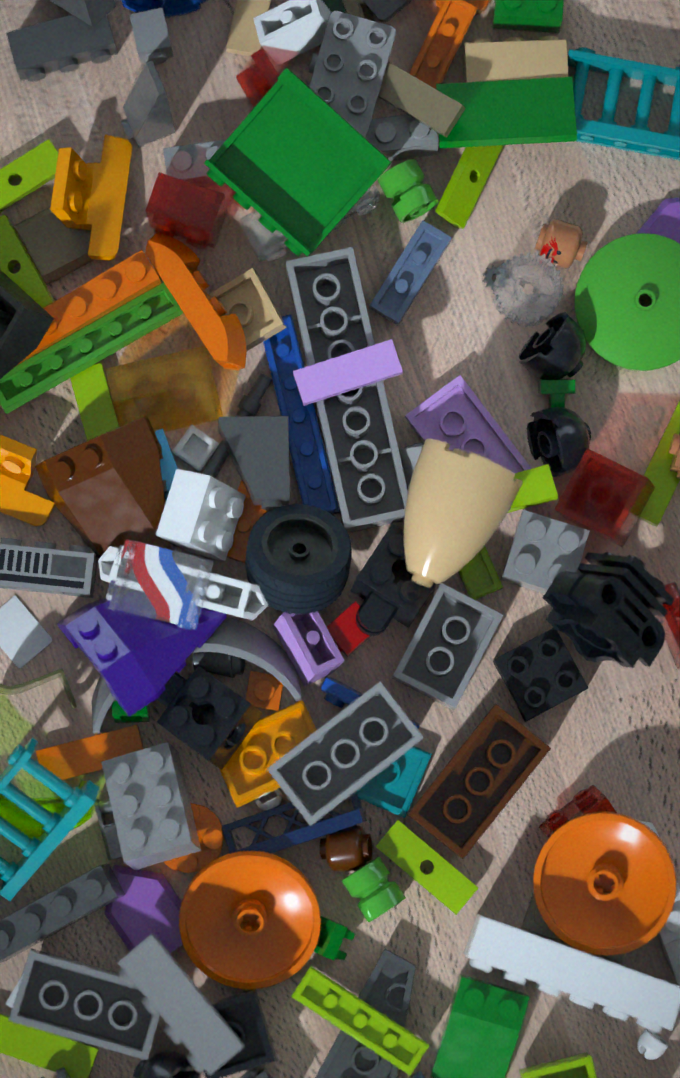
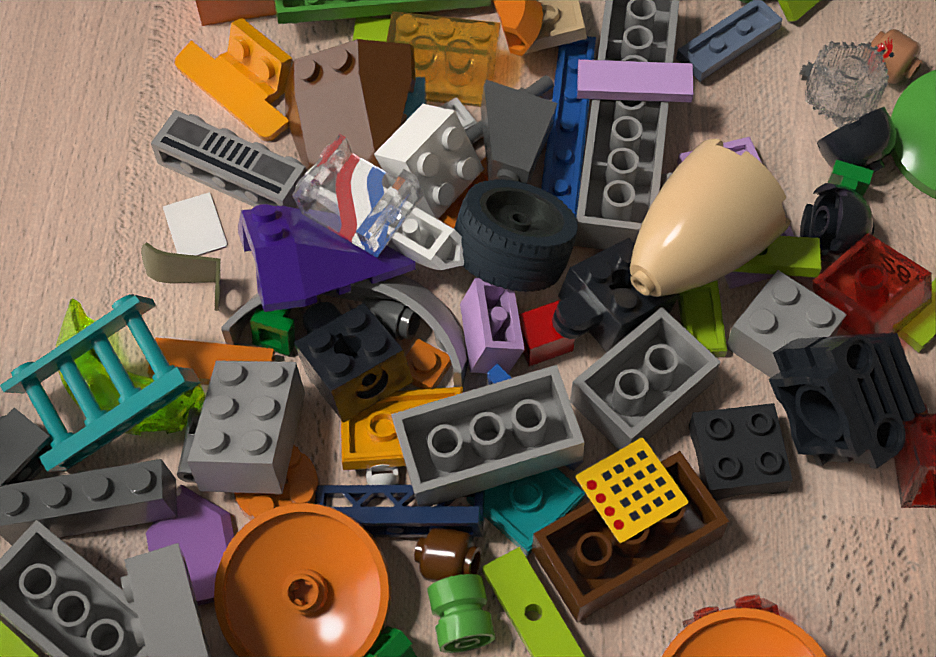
camera: 20 degrees right, 20 degrees down
(469, 750) = (631, 490): none -> yellow sticker

